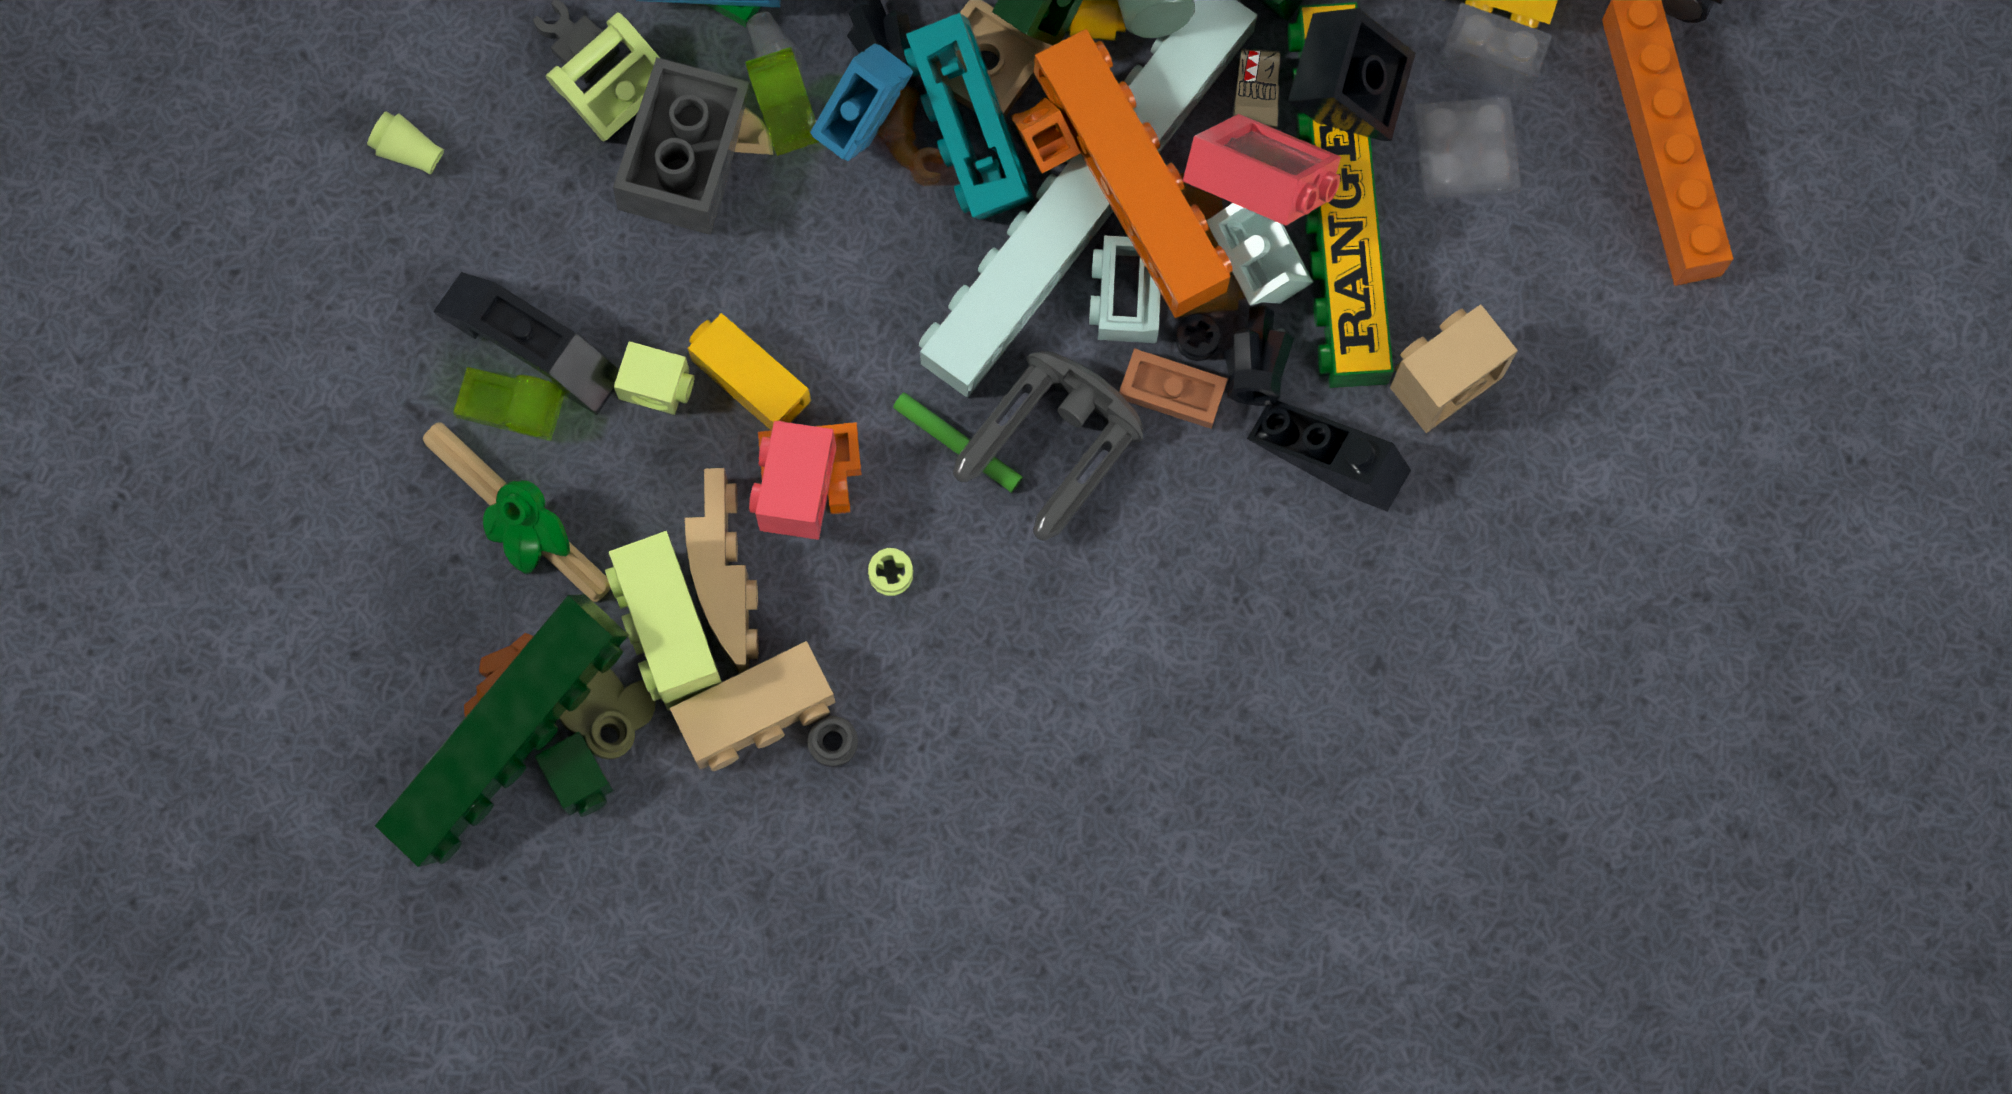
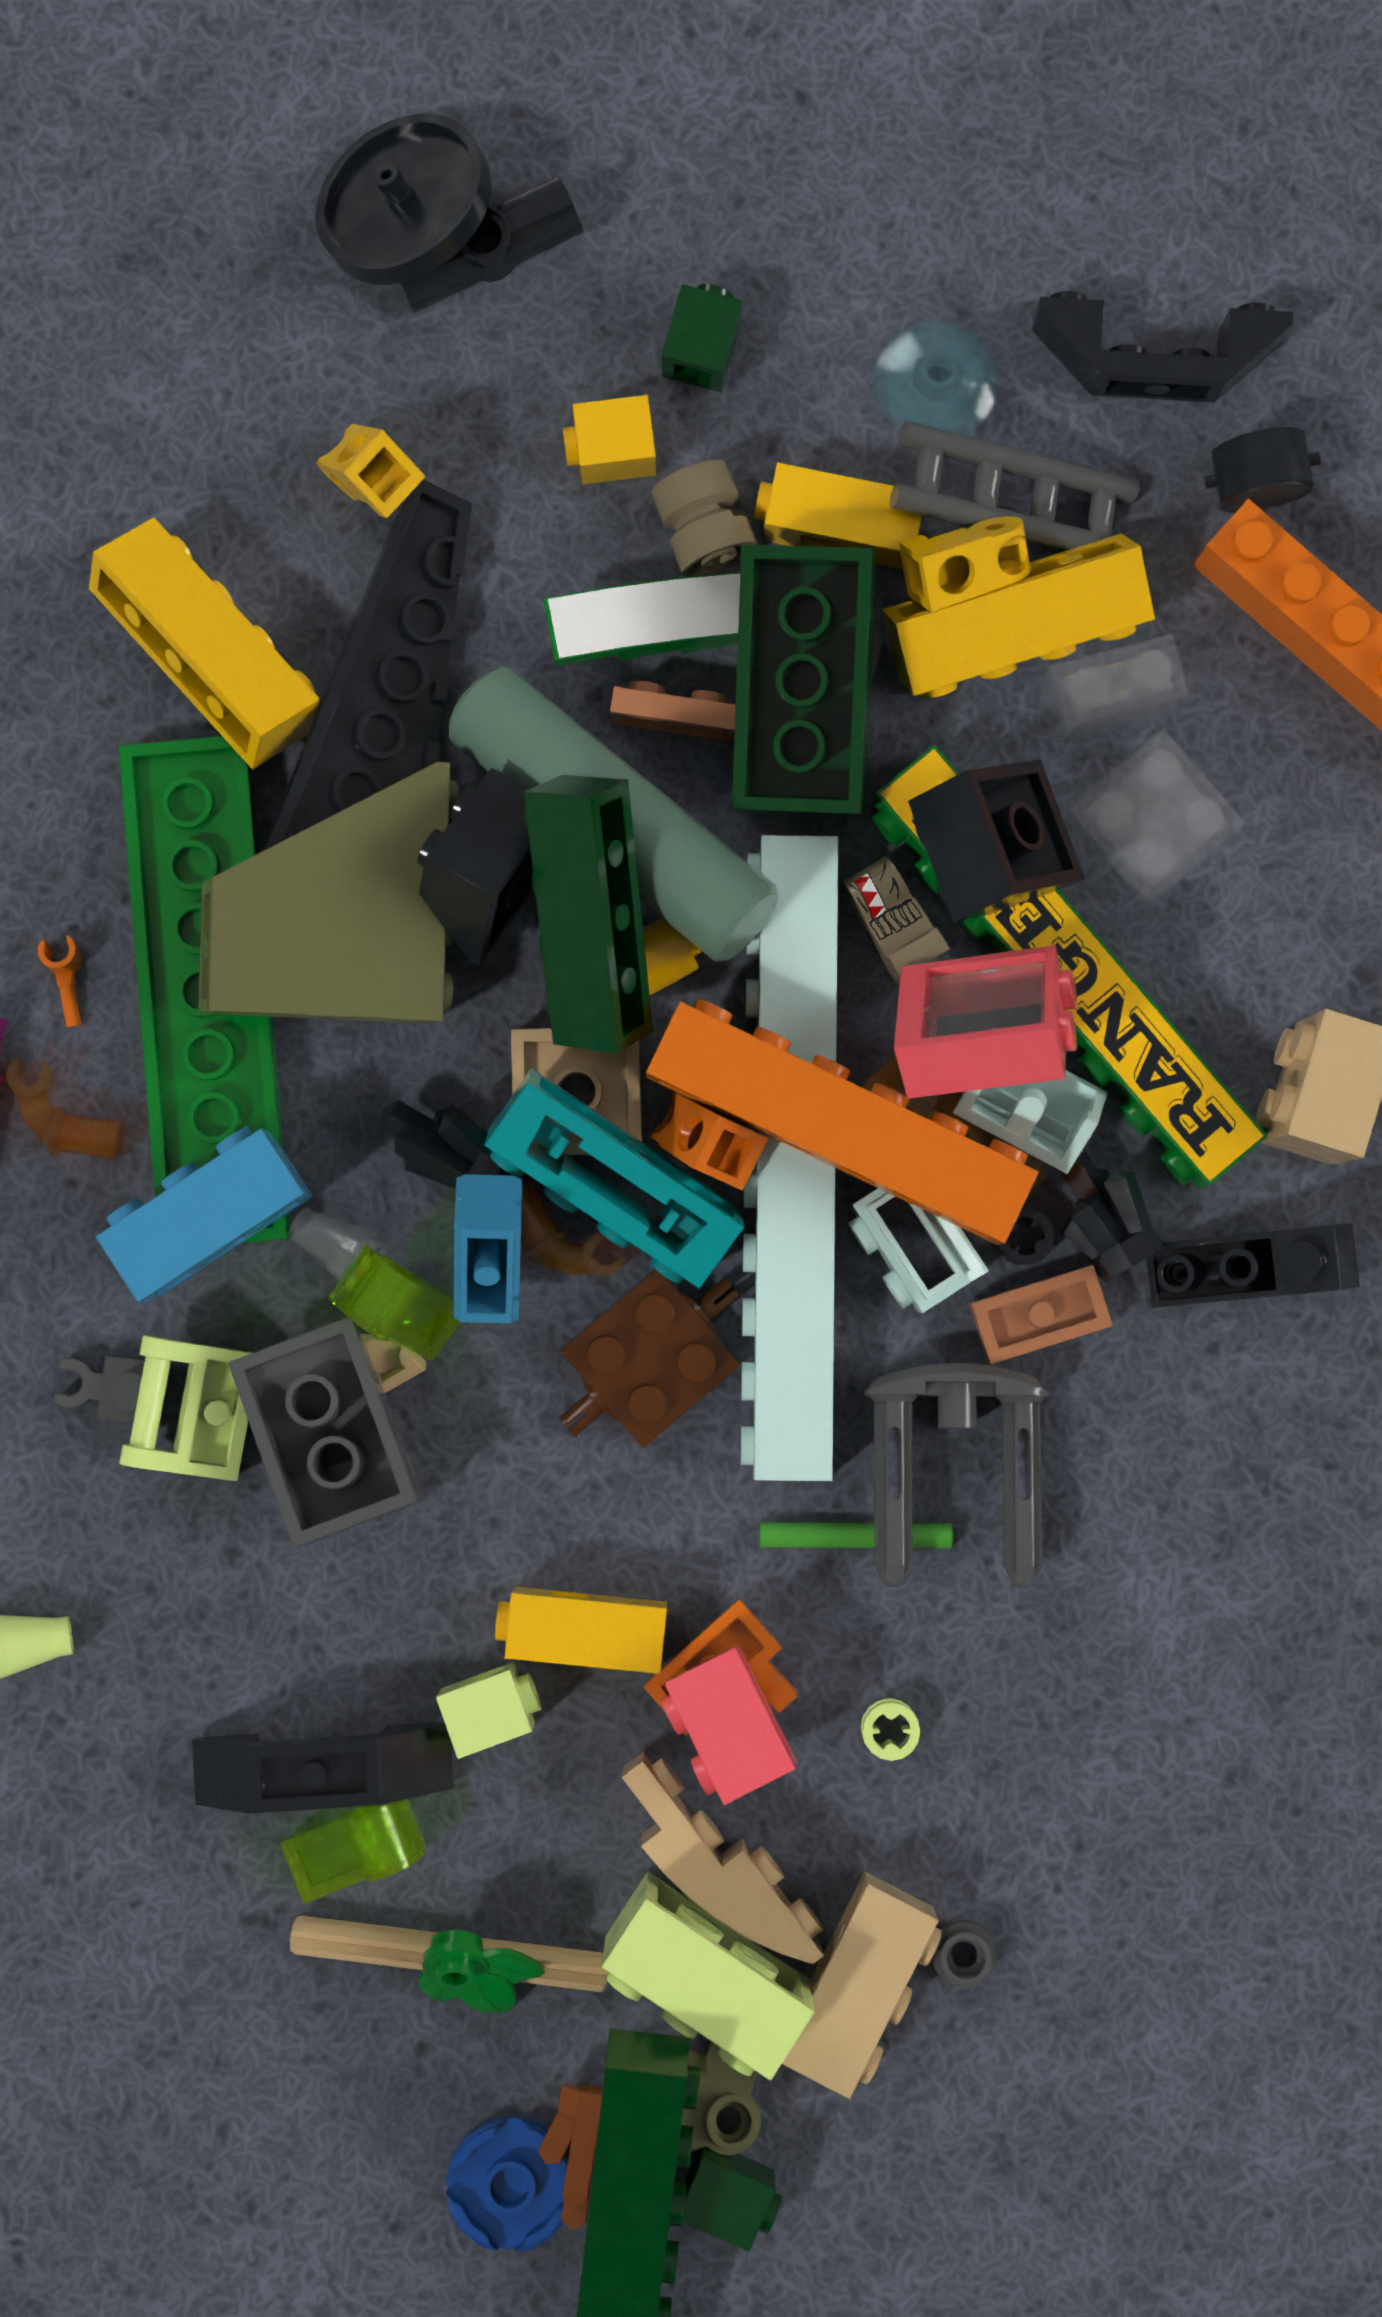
camera: 35 degrees left, 10 degrees up
(443, 698) = (507, 2155): none -> blue tile
(911, 246) = (649, 1357): none -> reddish brown plate

